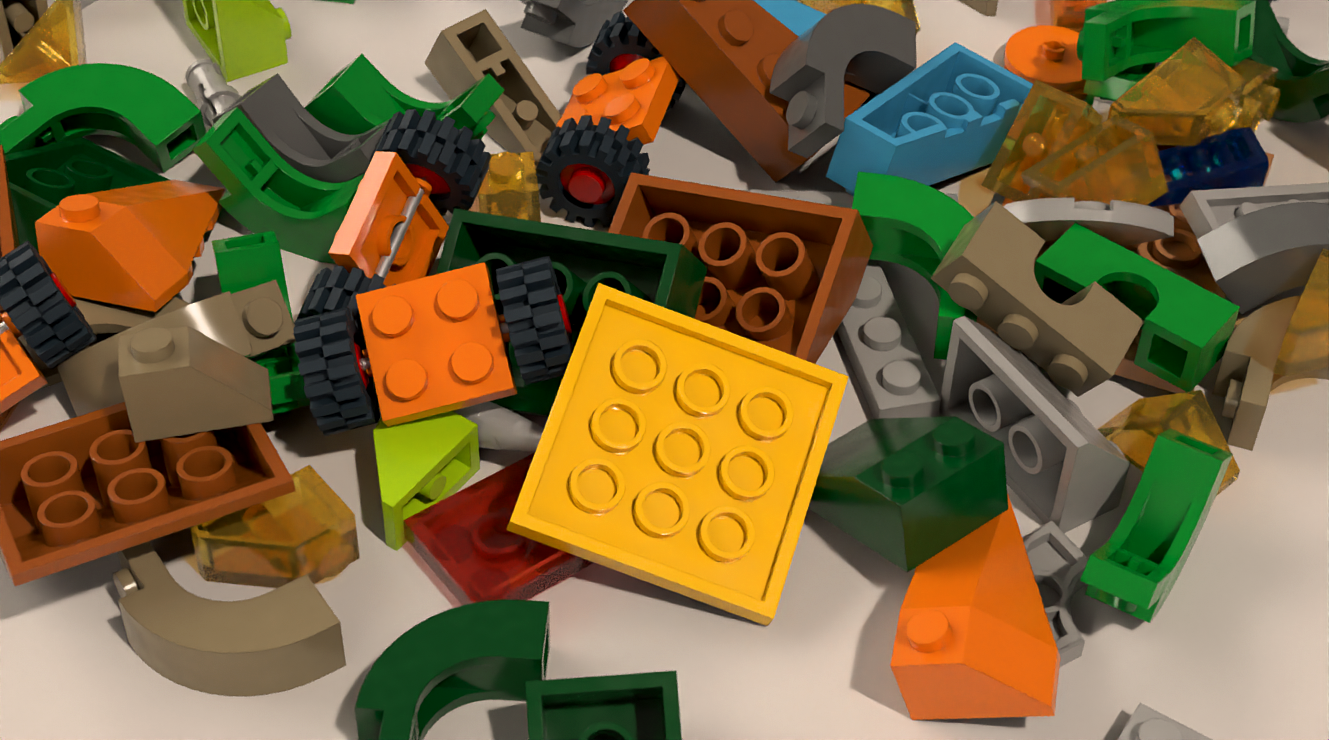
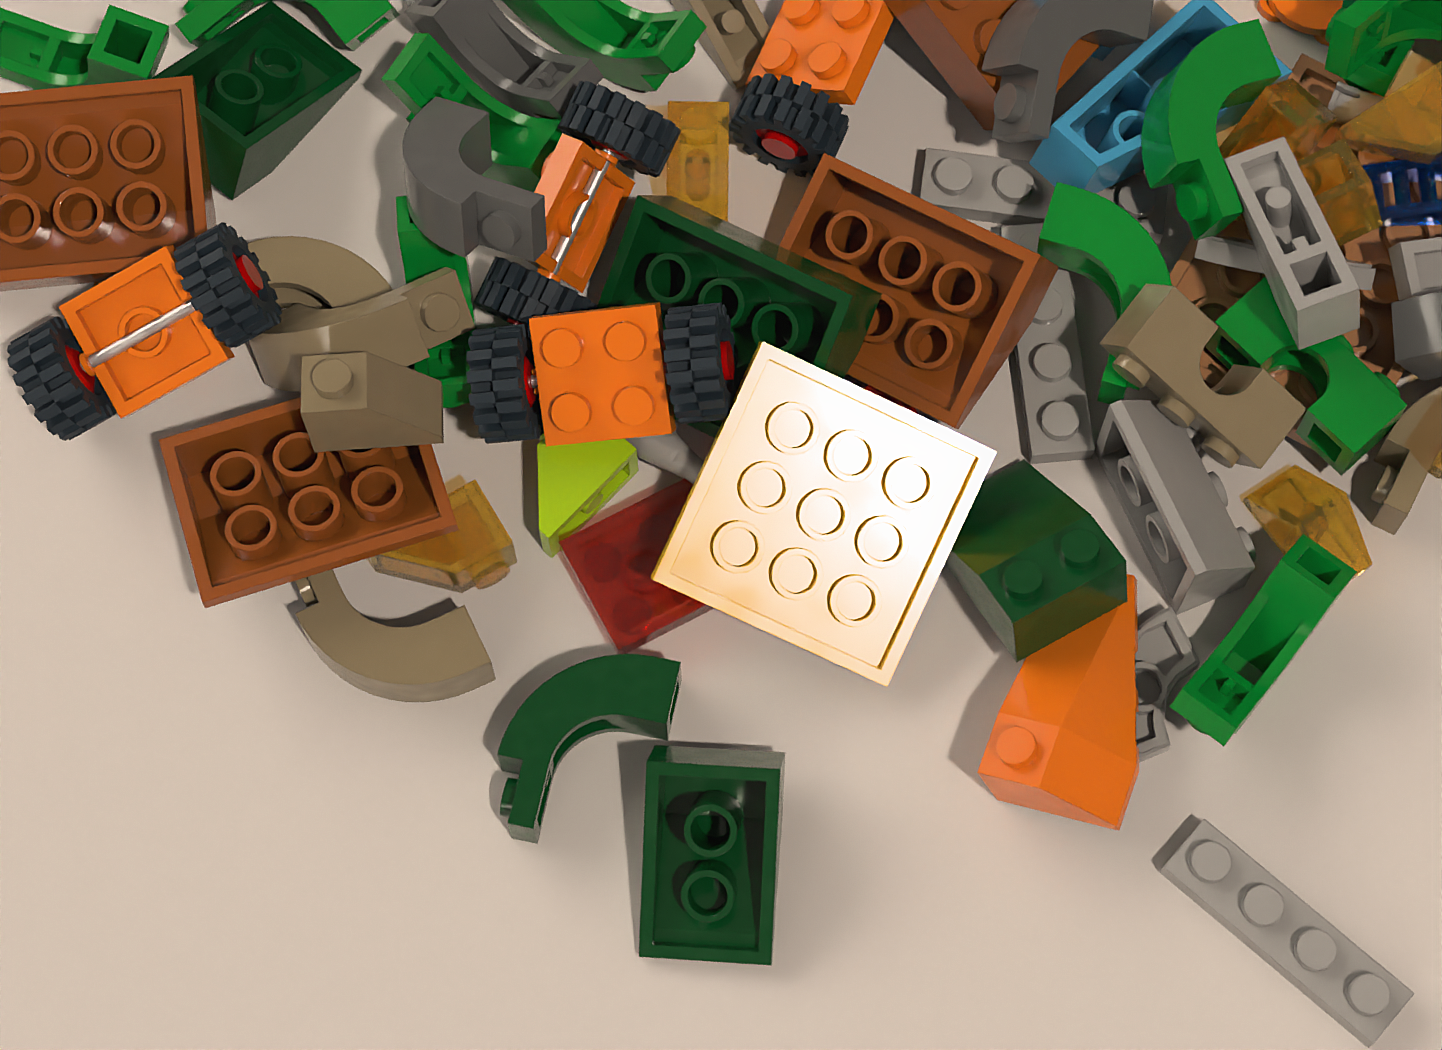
camera: 10 degrees right, 25 degrees up
(129, 241) = (321, 177): orange wedge -> none
(277, 211) = (451, 200): none -> dark grey arch
(973, 107) = (1182, 118): none -> green arch
(1103, 182) = (1295, 244): none -> light grey slope

